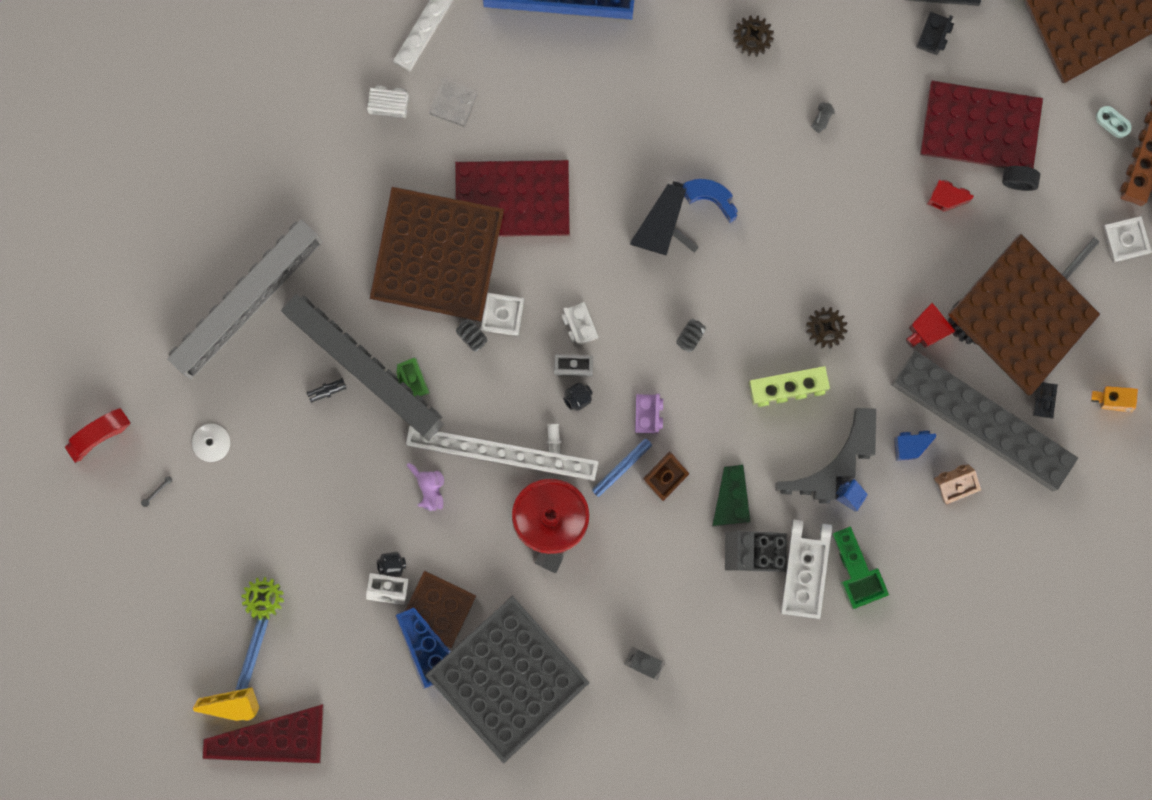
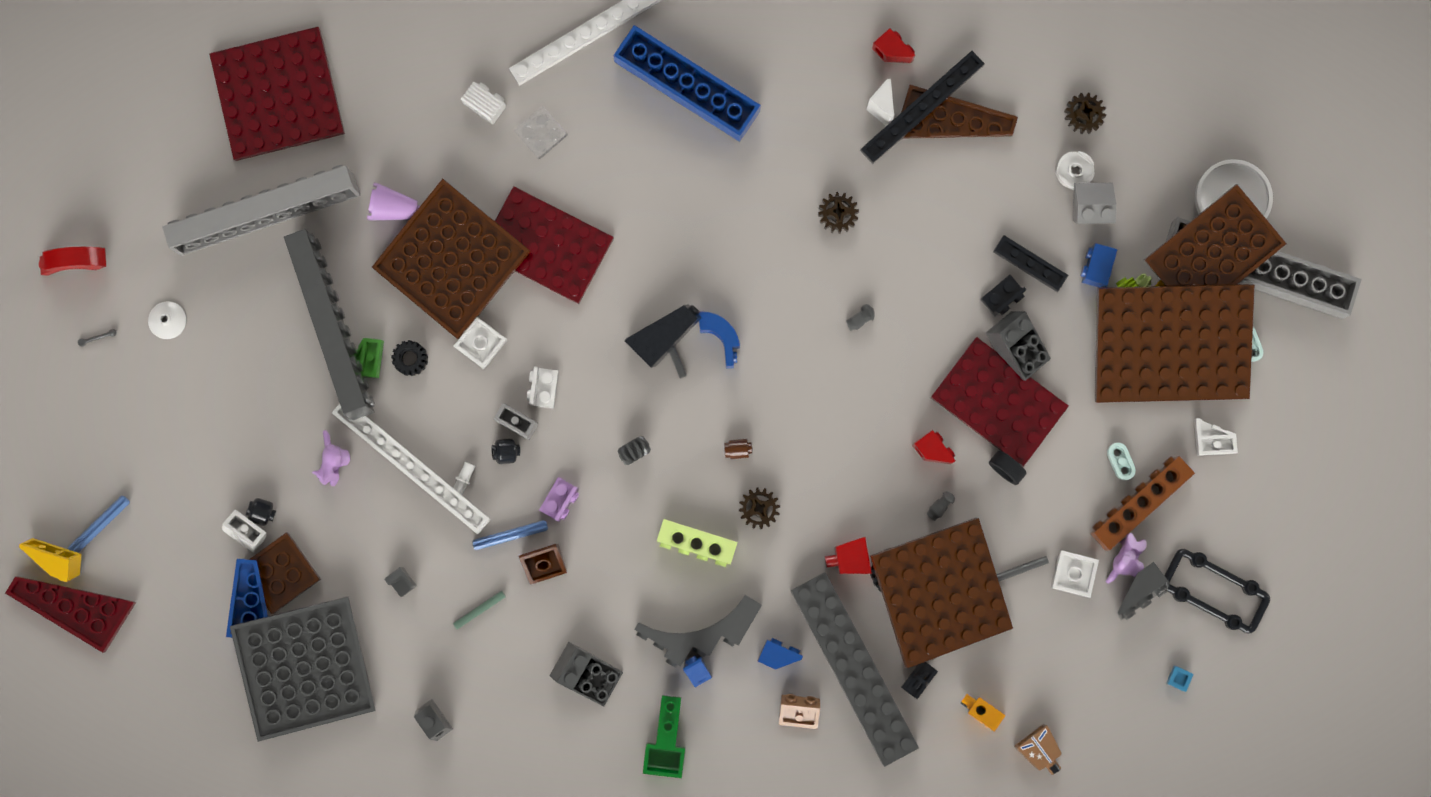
camera: 30 degrees right, 0 degrees up
(197, 191) = (276, 93): none -> dark red plate
(257, 603) = (131, 473): lime gear -> none
(326, 390) = (290, 327): black pin -> none
(356, 235) = (390, 204): none -> lavender cone
(447, 349) = (398, 358): none -> black tyre
(471, 335) = (441, 347): dark grey gear -> none
(550, 516) = (421, 544): red dish -> none
(631, 546) = (478, 610): none -> sand green bar
(732, 499) = (592, 615): dark green wing -> none
(779, 286) = (738, 449): none -> reddish brown brick
(806, 579) = (617, 723): white hinge -> none
(971, 66) = (1019, 344): none -> dark grey slope
(980, 244) = (940, 506): none -> dark grey arm

